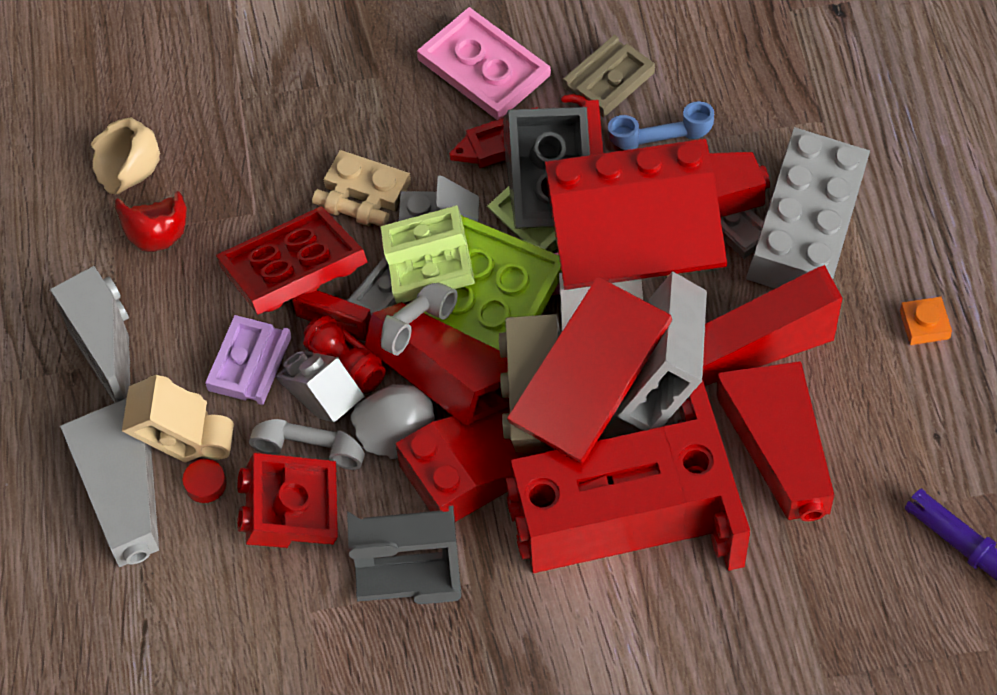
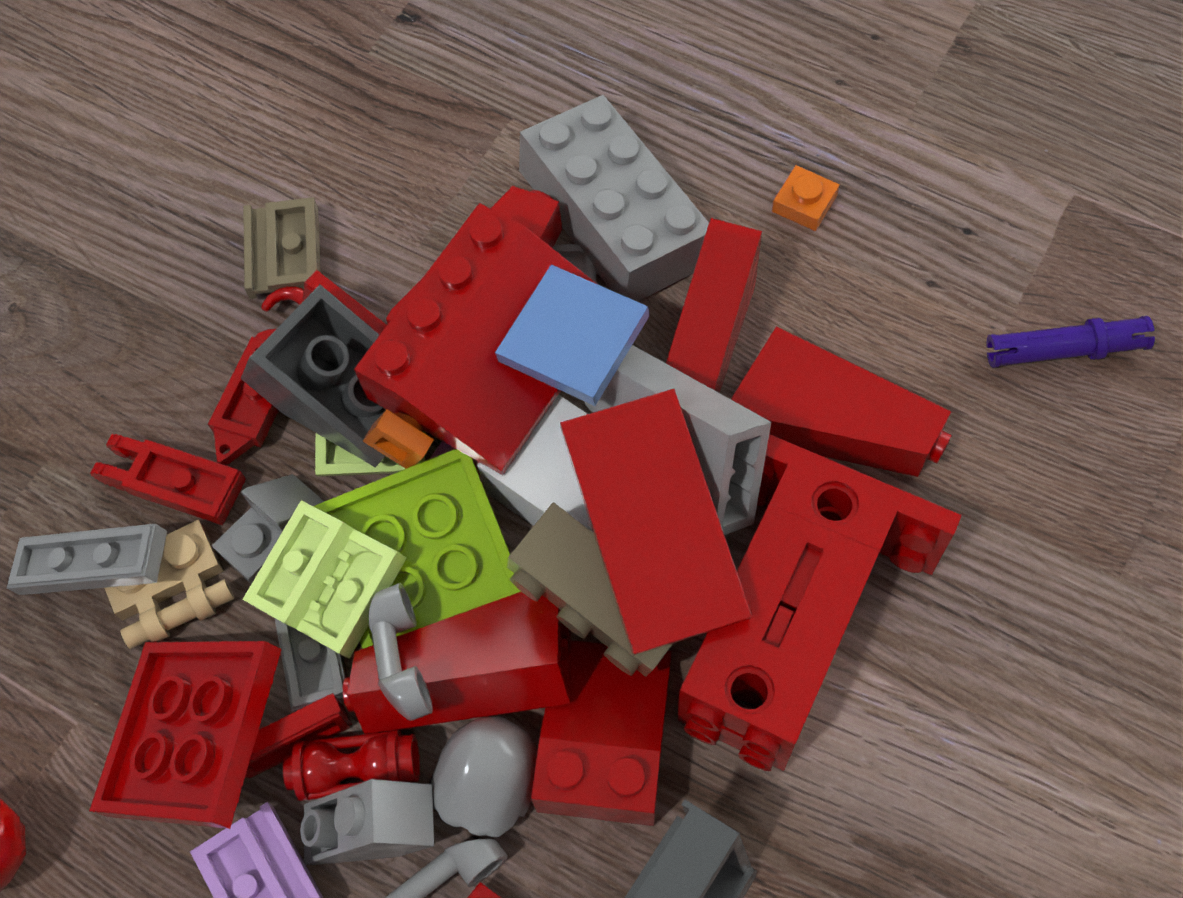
camera: 50 degrees left, 5 degrees up
(339, 141) = (88, 559): none -> light grey tile
(421, 142) = (172, 478): none -> red hinge
(484, 63) = (144, 347): bright pink plate -> none
(537, 221) = (398, 438): none -> orange plate
(670, 249) = (572, 334): none -> medium blue tile
(697, 122) = (414, 217): medium blue bar -> none

